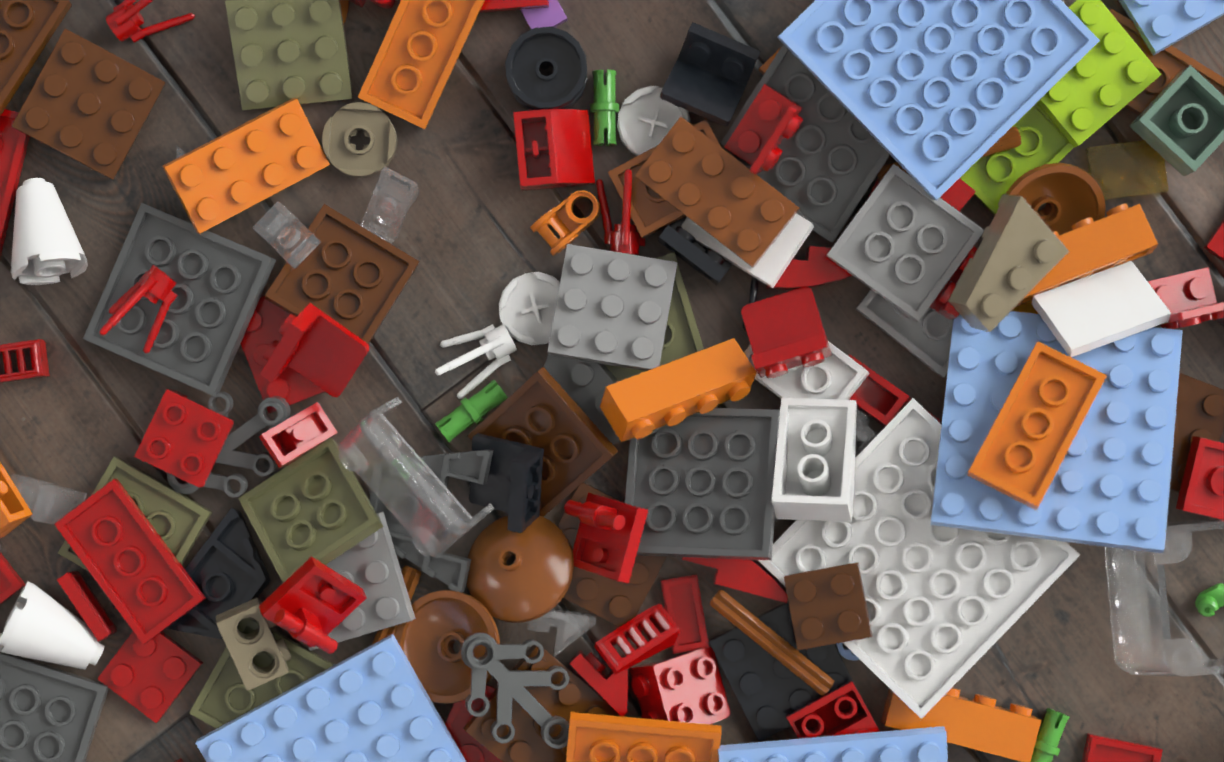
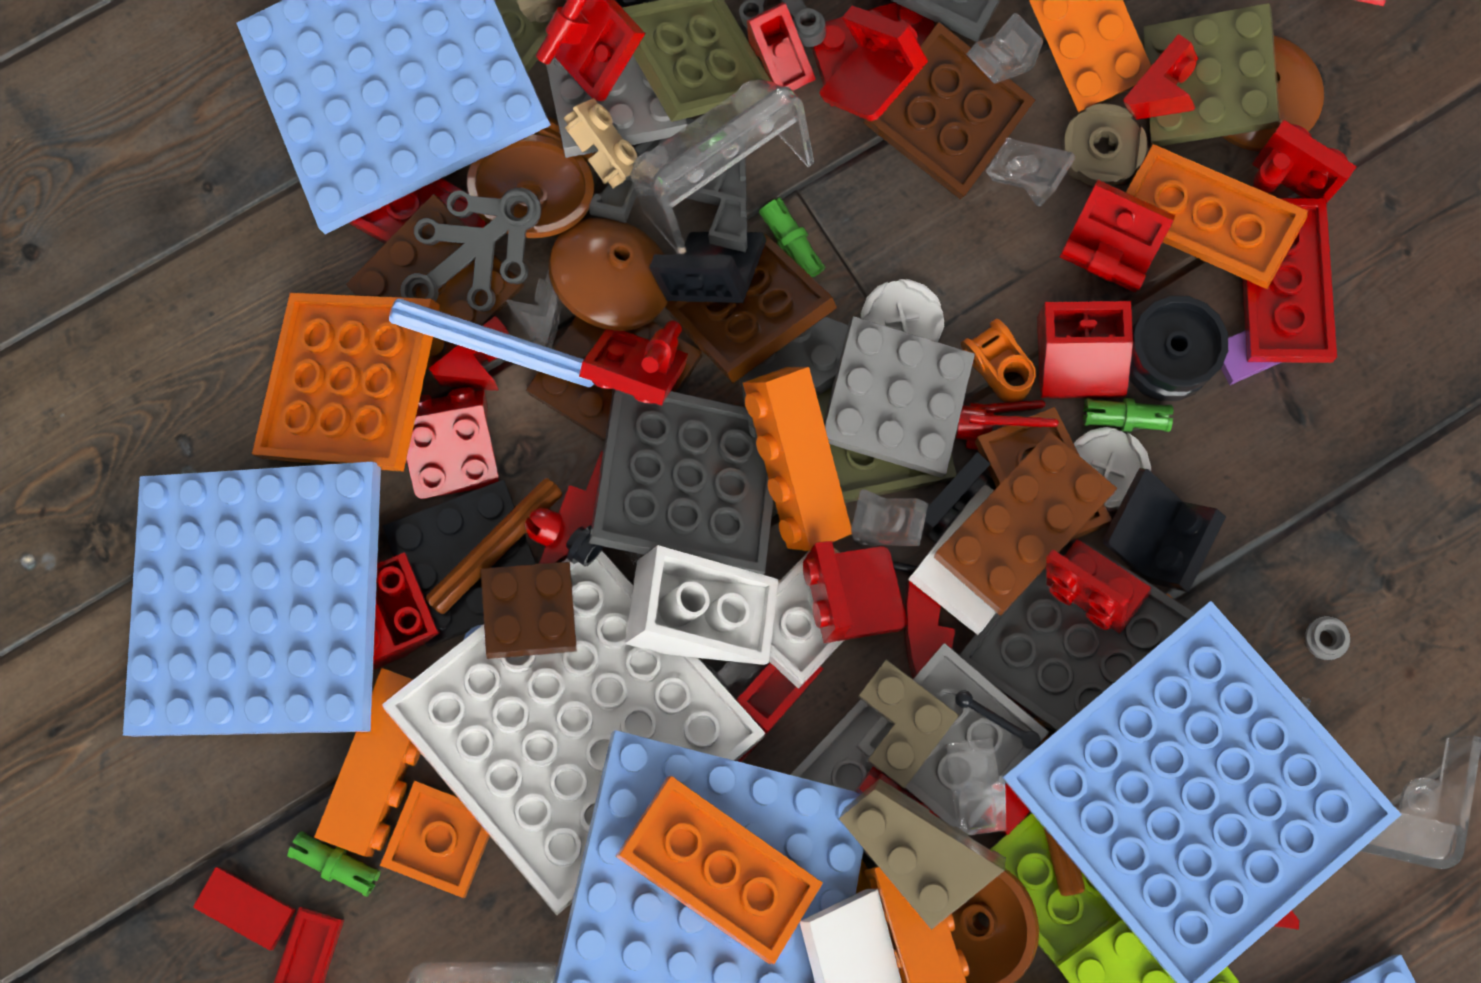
camera: 100 degrees right, 10 degrees down
(312, 97) = (1158, 90): none -> red slope
(416, 574) = (592, 125): none -> tan hinge
(451, 126) = (1117, 236): none -> red plate
(496, 345) = (865, 270): white plant -> none
(600, 666) = (487, 341): none -> light blue axle
(656, 625) = (507, 415): red slope -> none
(685, 607) = (539, 457): red tile -> none
(722, 307) = (888, 520): none -> clear slope
(754, 601) = (543, 526): none -> red hinge
(769, 568) = (580, 549): none -> black plate
(895, 273) = (916, 718): none -> dark tan plate
(901, 179) = (1028, 739): none -> black hinge
(945, 221) = (976, 786): none -> clear slope
(1020, 664) = (436, 841): none -> orange plate

